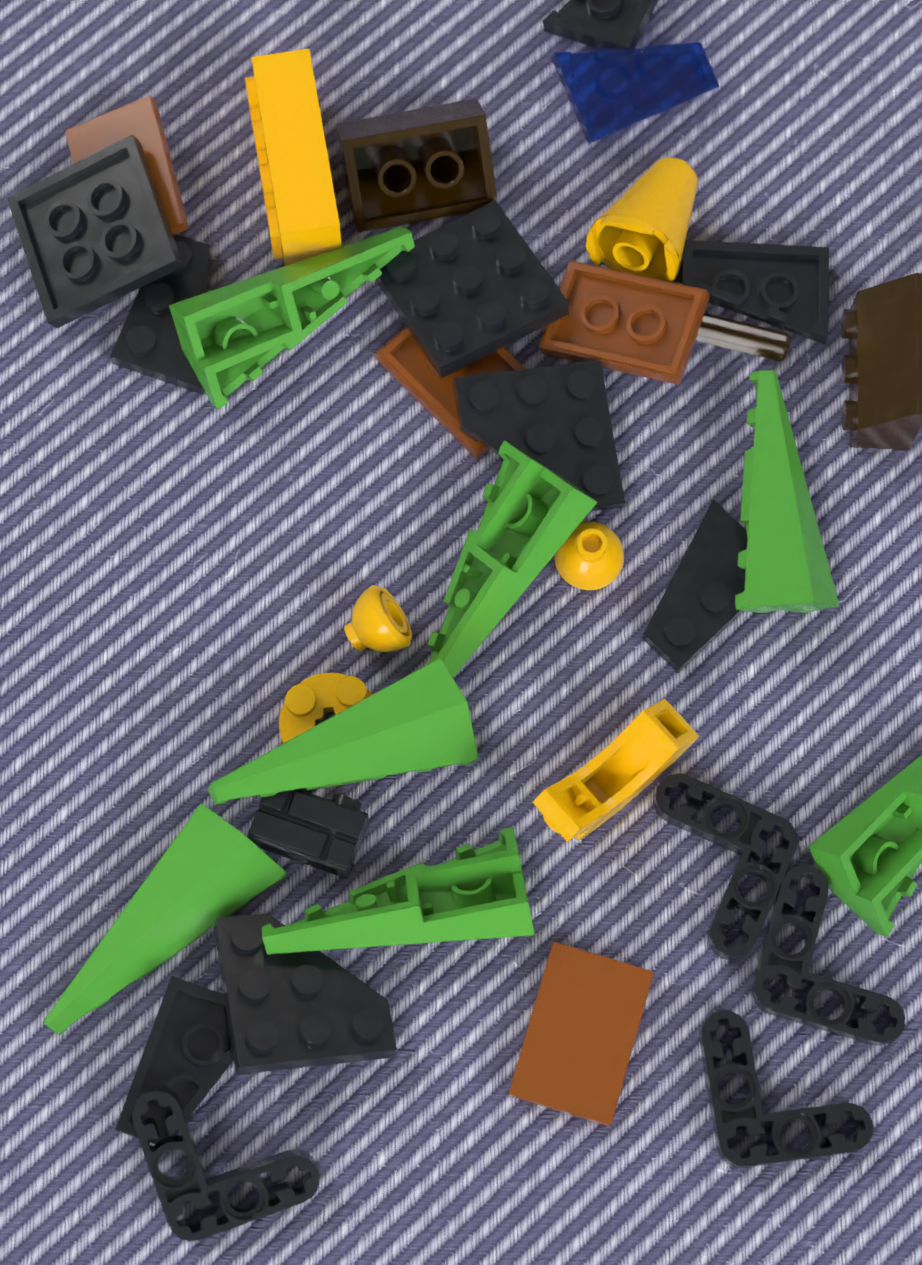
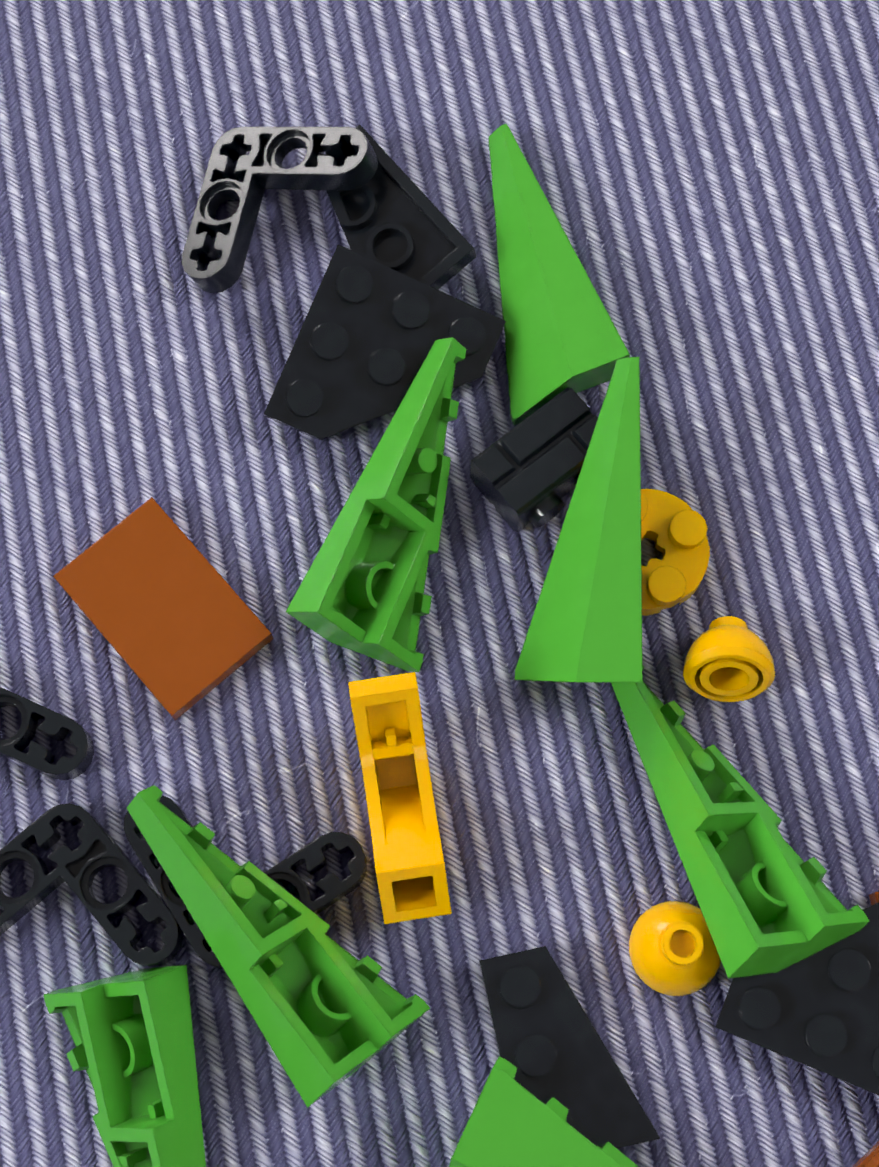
camera: 125 degrees right, 0 degrees up
(771, 765) = (302, 988): none -> bright green wedge

